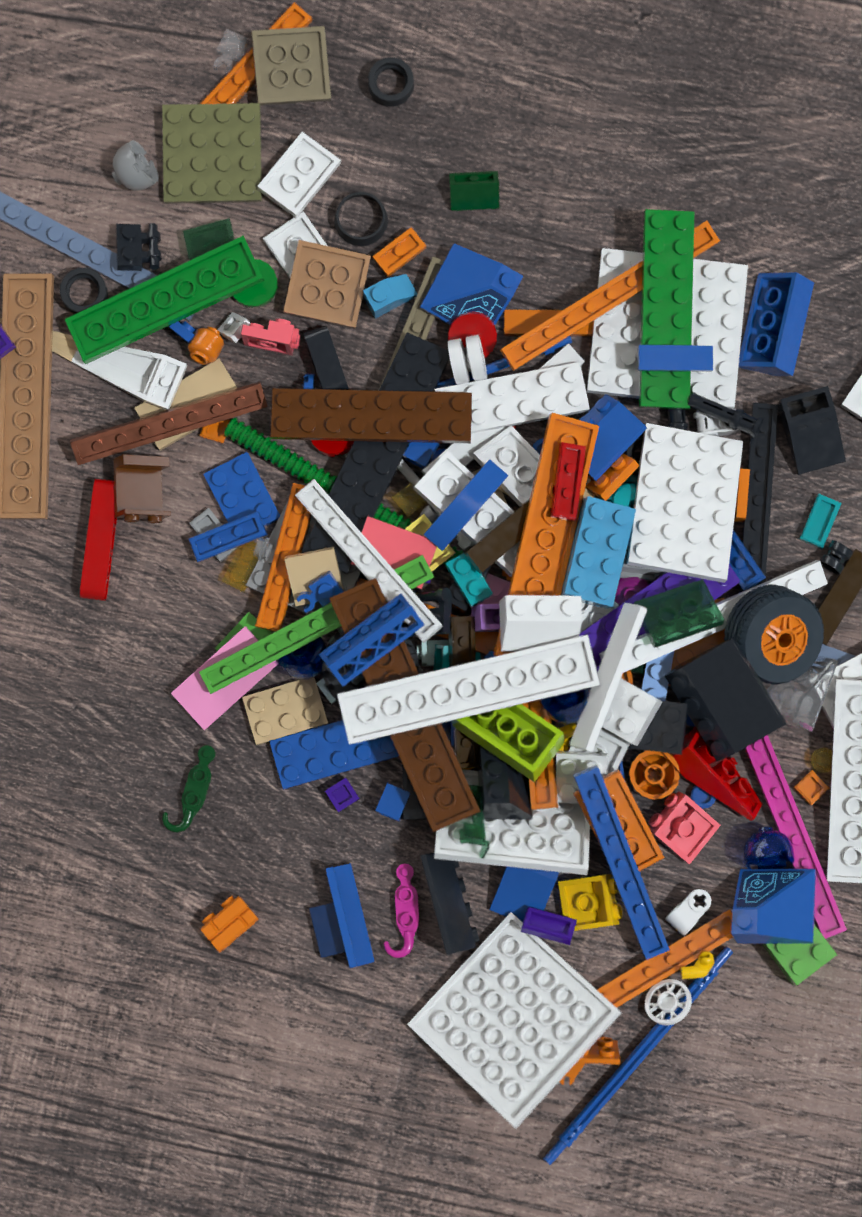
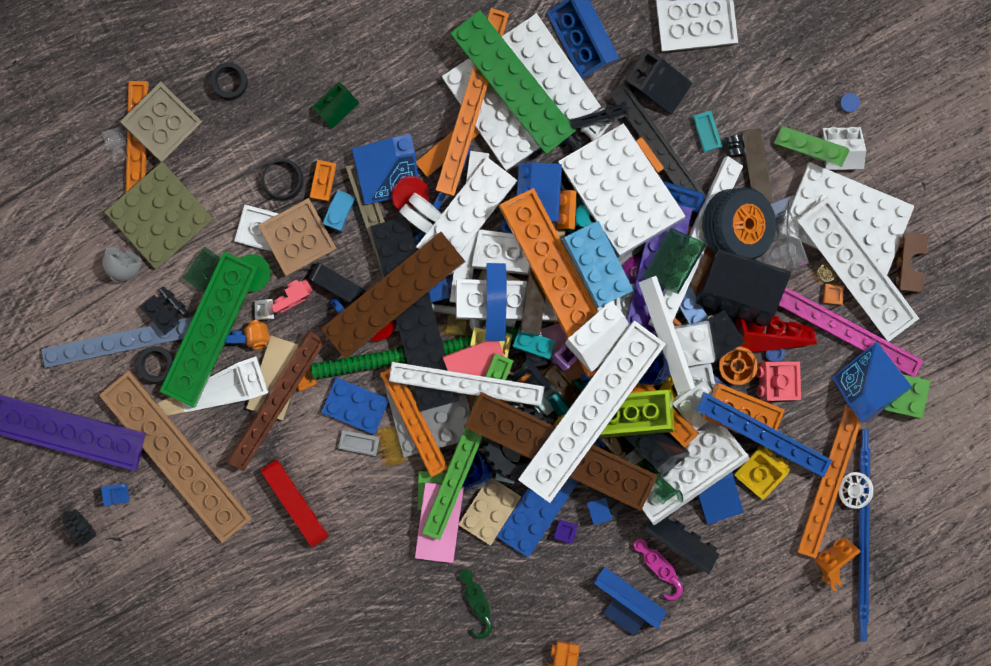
camera: 40 degrees left, 5 degrees up
(139, 488) = (292, 454): reddish brown panel -> none
(228, 536) = (369, 437): blue tile -> none
(263, 548) = (396, 427): clear plate -> none
(299, 174) = (223, 184): white plate -> none
(309, 566) = (441, 419): tan tile -> none
(321, 591) = (453, 423): blue plate -> none
(369, 635) = (506, 430): blue fence -> none
(514, 1020) = (777, 577): white plate -> none
(548, 925) = (751, 505): dark purple tile -> none
(568, 481) = (544, 237): red tile -> none
(675, 358) = (543, 108): blue tile -> none
(685, 914) = (823, 430): white piece -> none
(700, 968) = (858, 455): yellow arm -> none
(768, 849) = (839, 352): clear blue cylinder -> none

